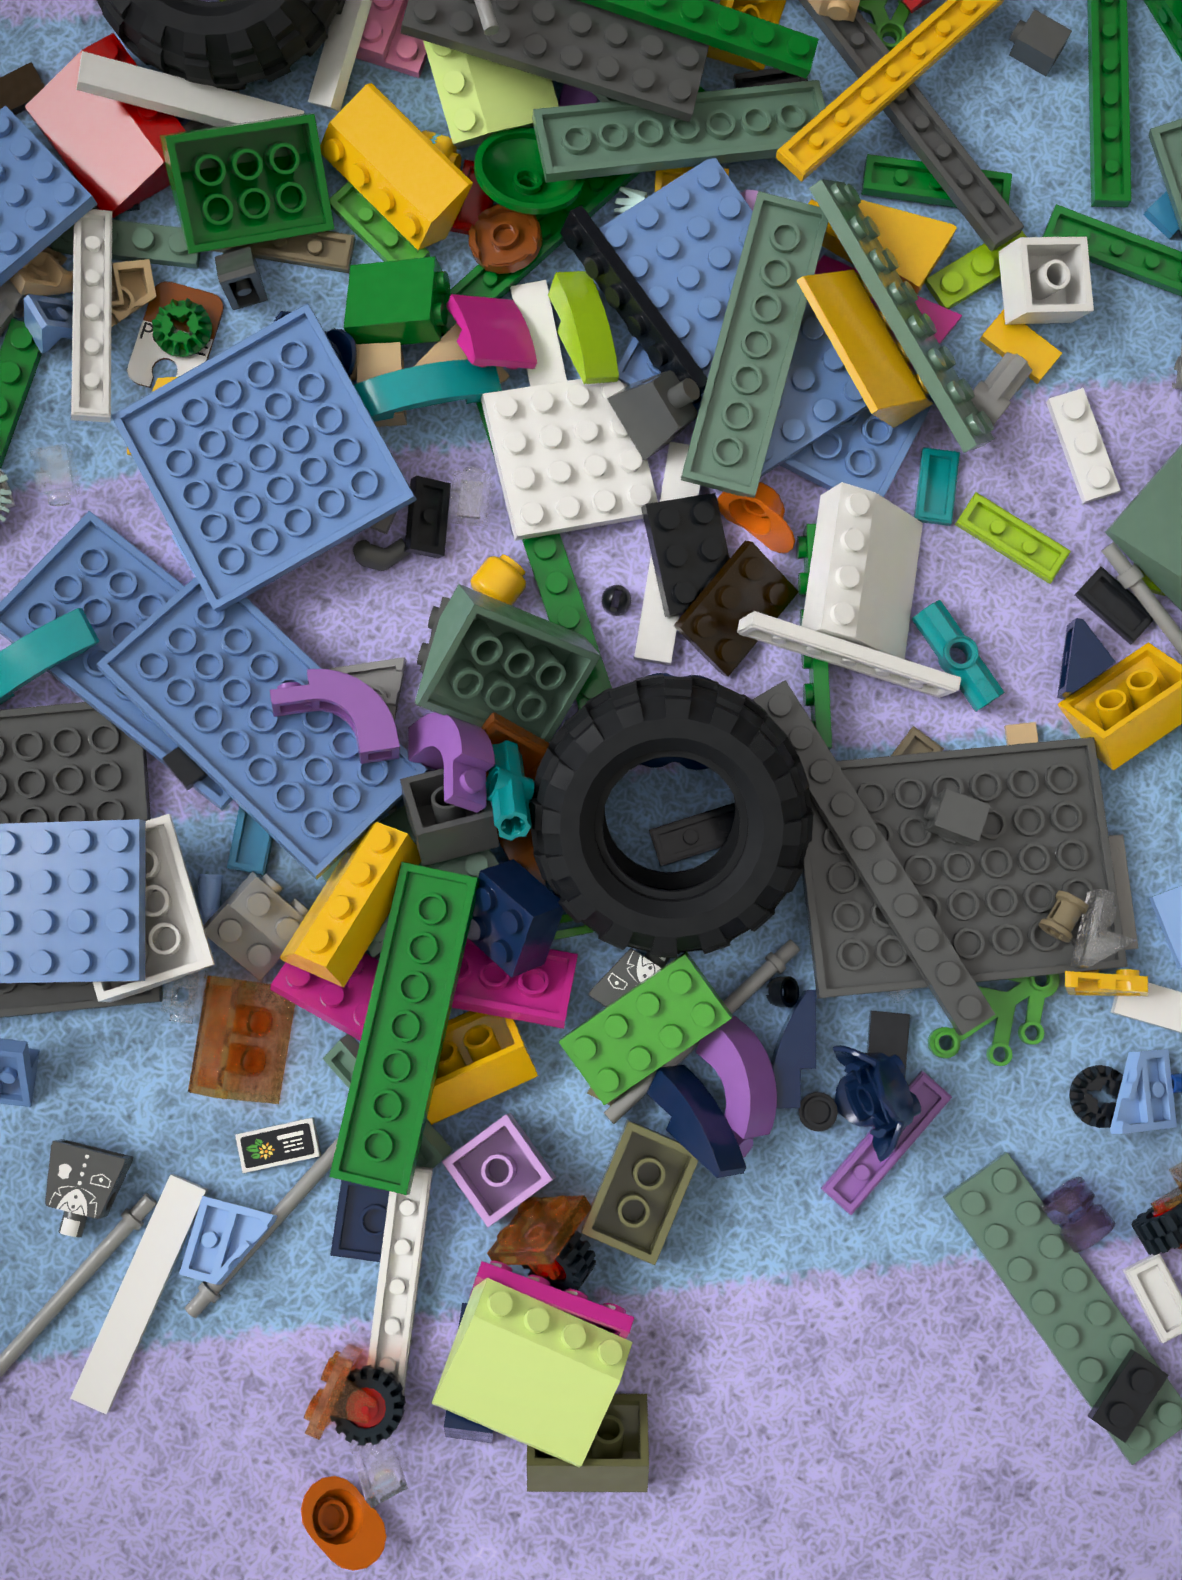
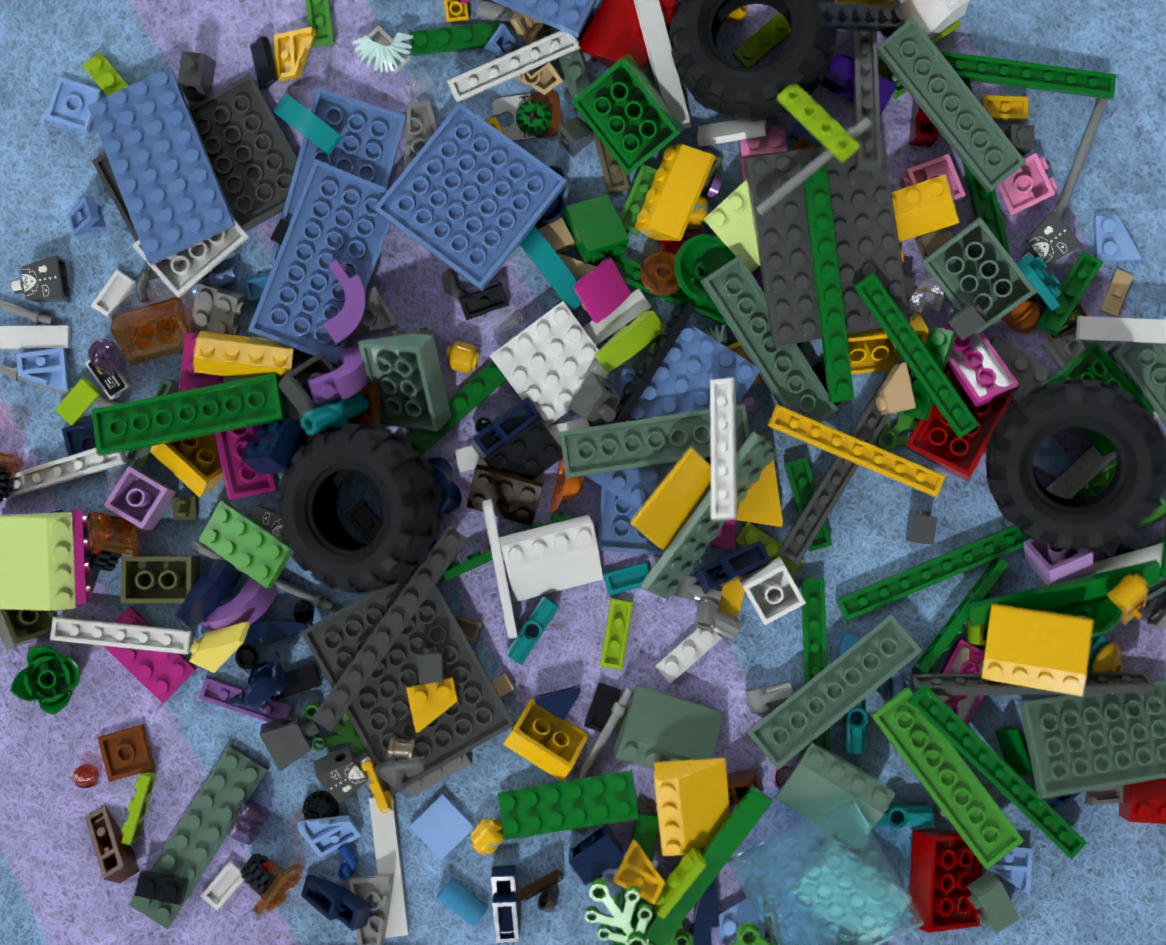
camera: 70 degrees right, 5 degrees up
(125, 502) = (419, 128): none -> light grey wing
(153, 1081) = (114, 293): none -> white tile
(157, 1028) = (142, 283): none -> dark grey arm
(253, 1125) = (107, 357): none -> clear purple wheel
(299, 1207) = (78, 401): none -> lime tile
(412, 112) = (714, 187): none -> medium lavender tile
(542, 1111) = (185, 508): none -> olive tile
(635, 565) = (504, 427): none -> dark blue slope
(702, 1292) = (121, 635): none -> white tile
(716, 1471) = (33, 681): none -> green brick
(747, 1269) = (158, 671): none -> dark pink piece
(787, 1136) = (217, 646): none -> light yellow slope
(816, 242) = (723, 449): none -> white tile
(889, 1368) = (126, 752): none -> dark orange tile
(901, 1448) = (86, 776): none -> clear red tile
(975, 1094) = (288, 739): none -> dark grey torso
(984, 1383) = (138, 807): none -> lime plate
(987, 323) = (732, 567): none -> dark blue slope
(1009, 844) = (430, 701): none -> yellow wing
(1029, 1453) = (114, 858): none -> reddish brown slope
(1051, 386) = (712, 619): none -> light grey piece
(1061, 1027) = (342, 772): none -> dark grey torso

